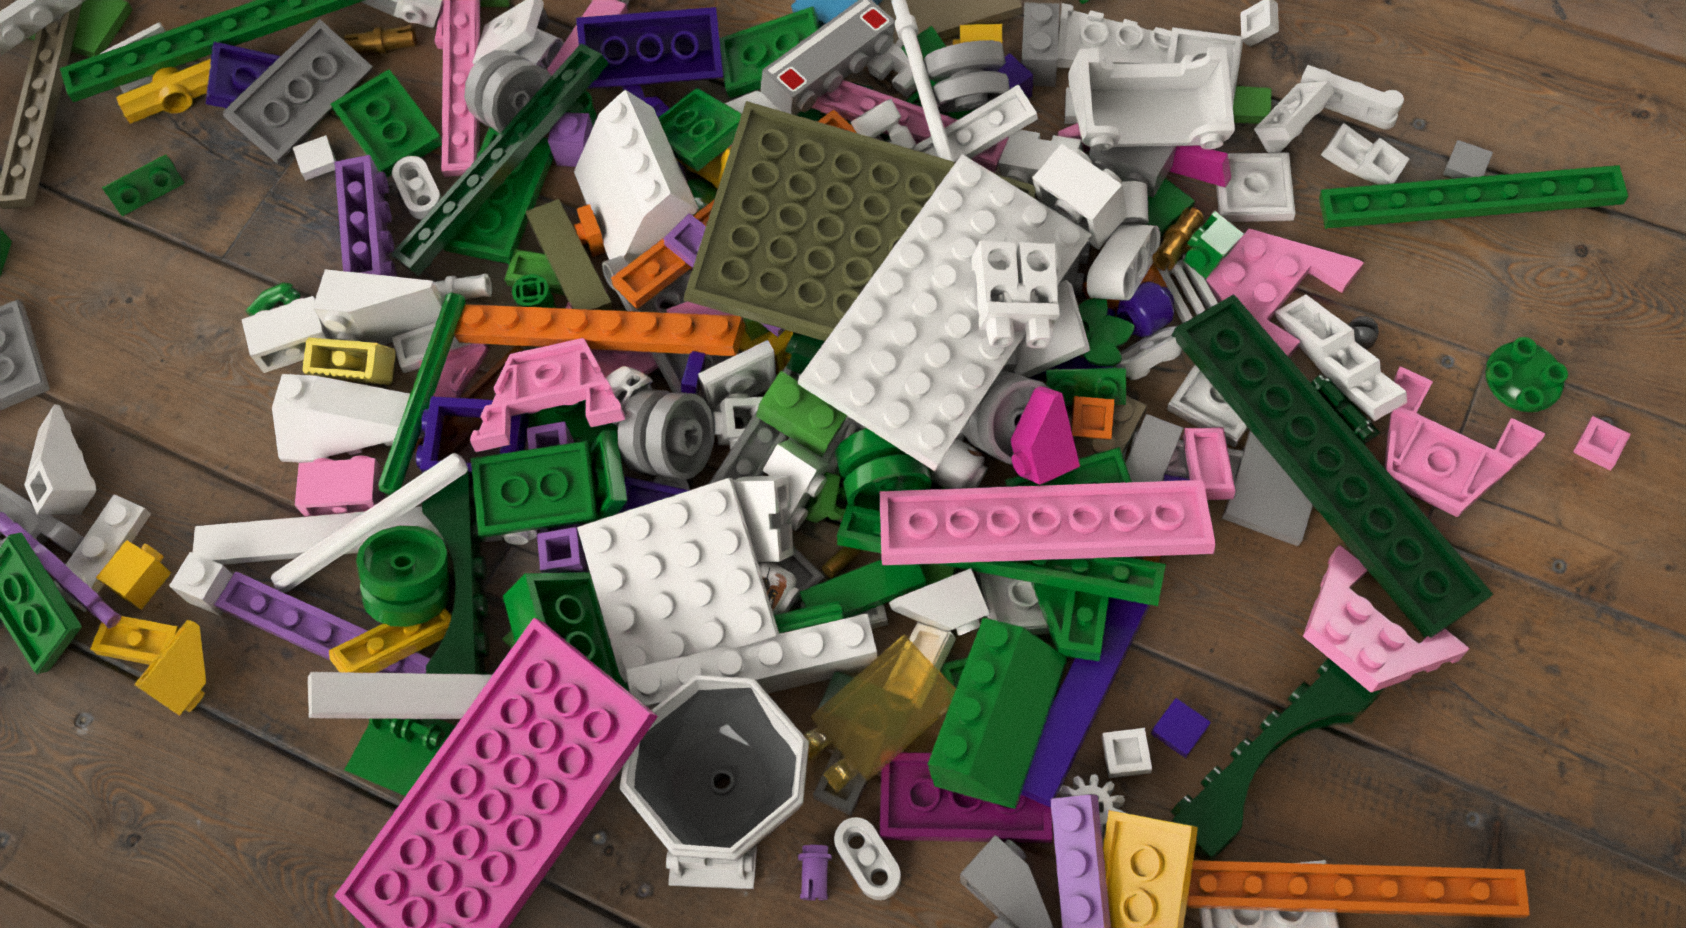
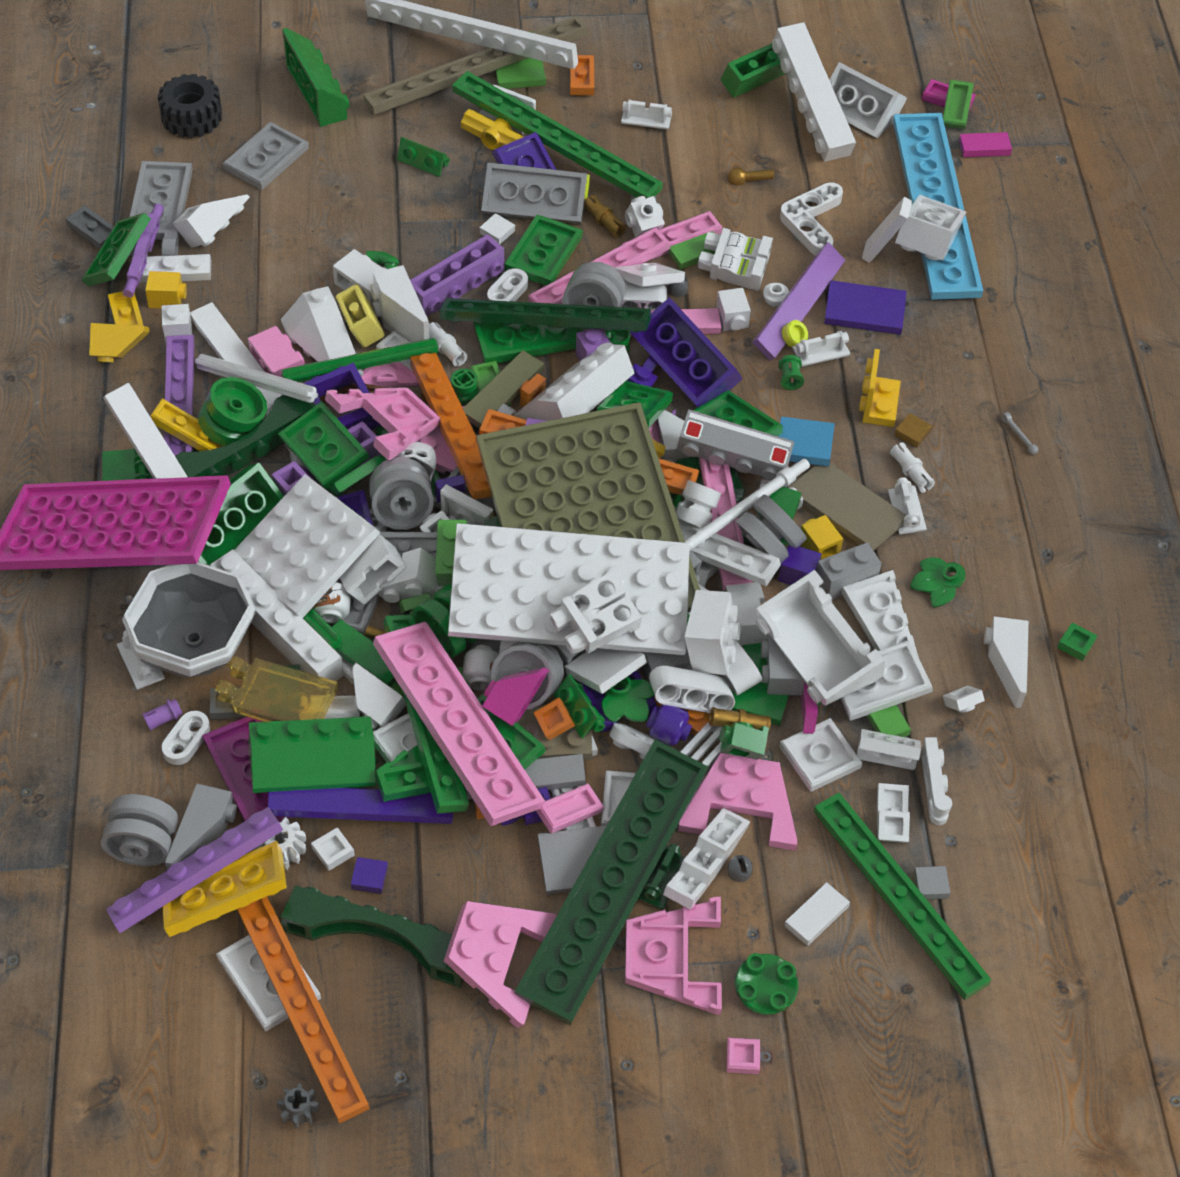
camera: 50 degrees right, 10 degrees down
(1456, 287) = (817, 914): none -> white tile

